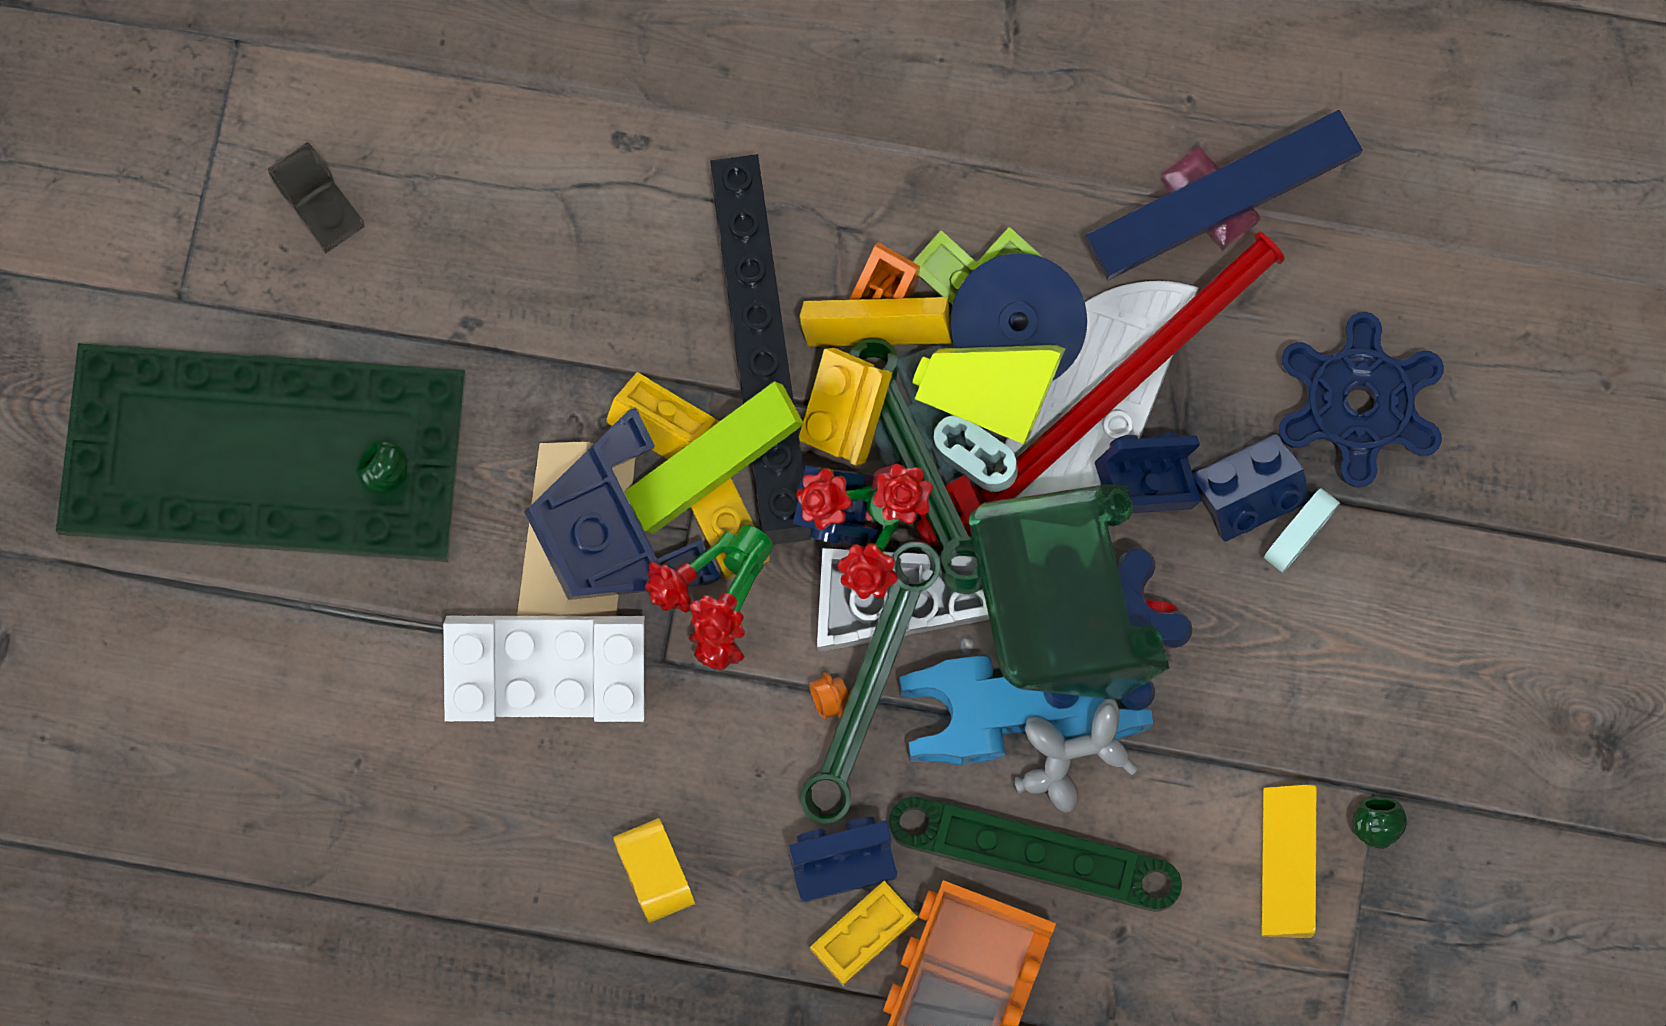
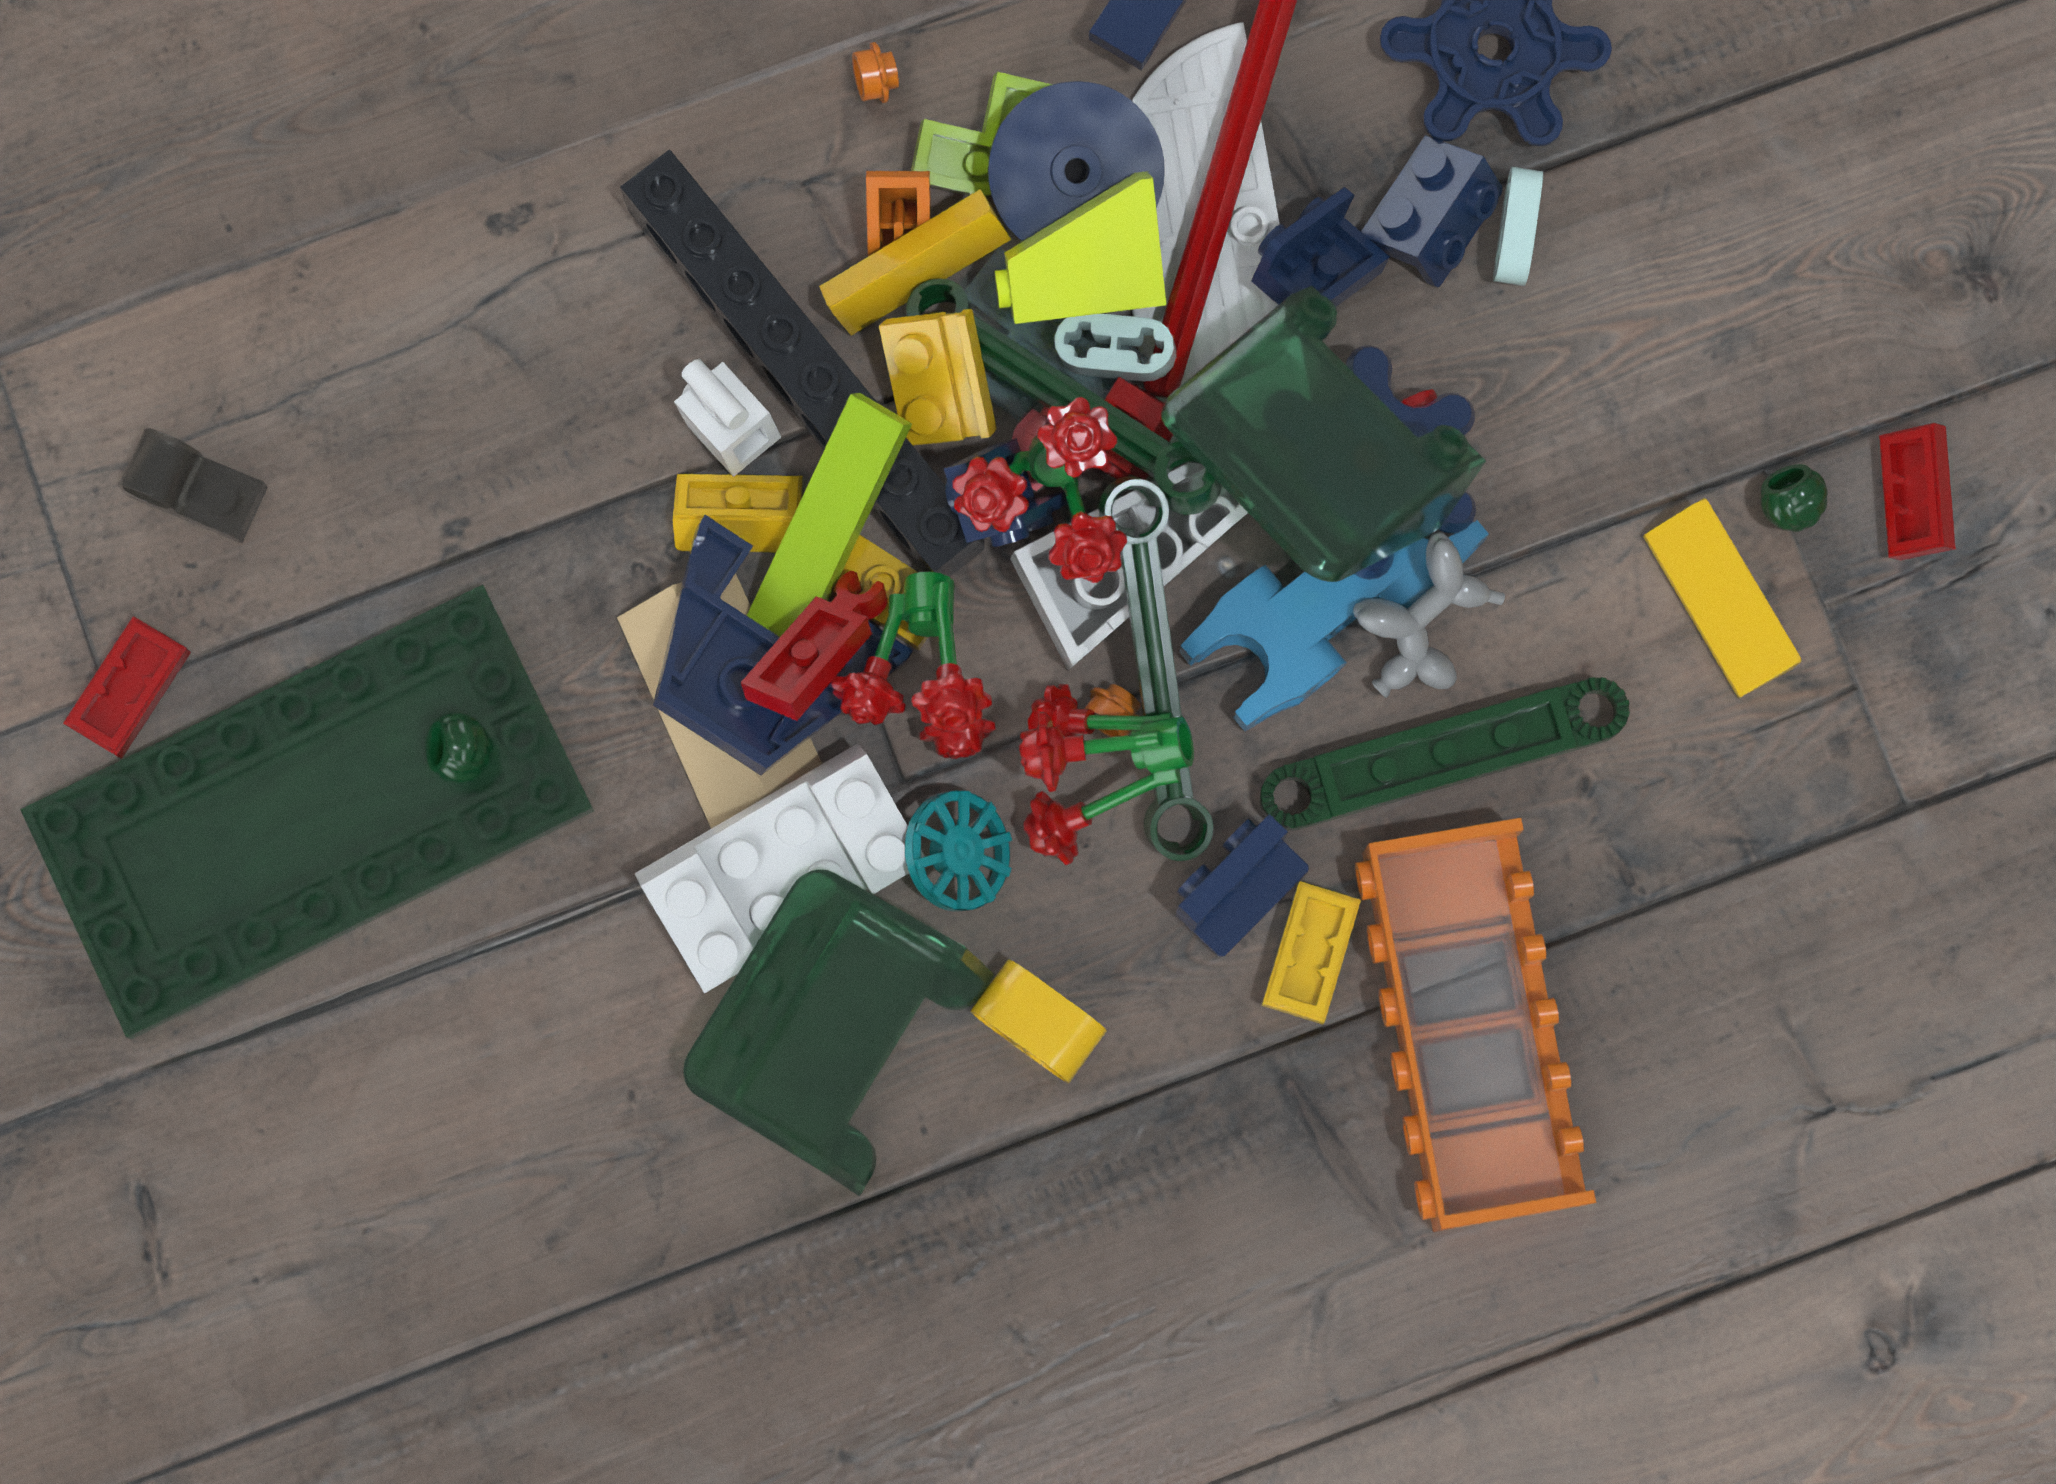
camera: 30 degrees left, 5 degrees up
(194, 304) = (127, 687): none -> red plate
(512, 783) = (820, 1018): none -> clear green windscreen
(653, 535) = (815, 648): none -> red plate
(668, 726) = (958, 851): none -> teal wheel
(690, 350) = (725, 415): none -> white brick
(780, 687) = (1052, 741): none -> plant
(929, 182) = (875, 73): none -> orange plate
(1467, 867) = (1917, 492): none -> red plate

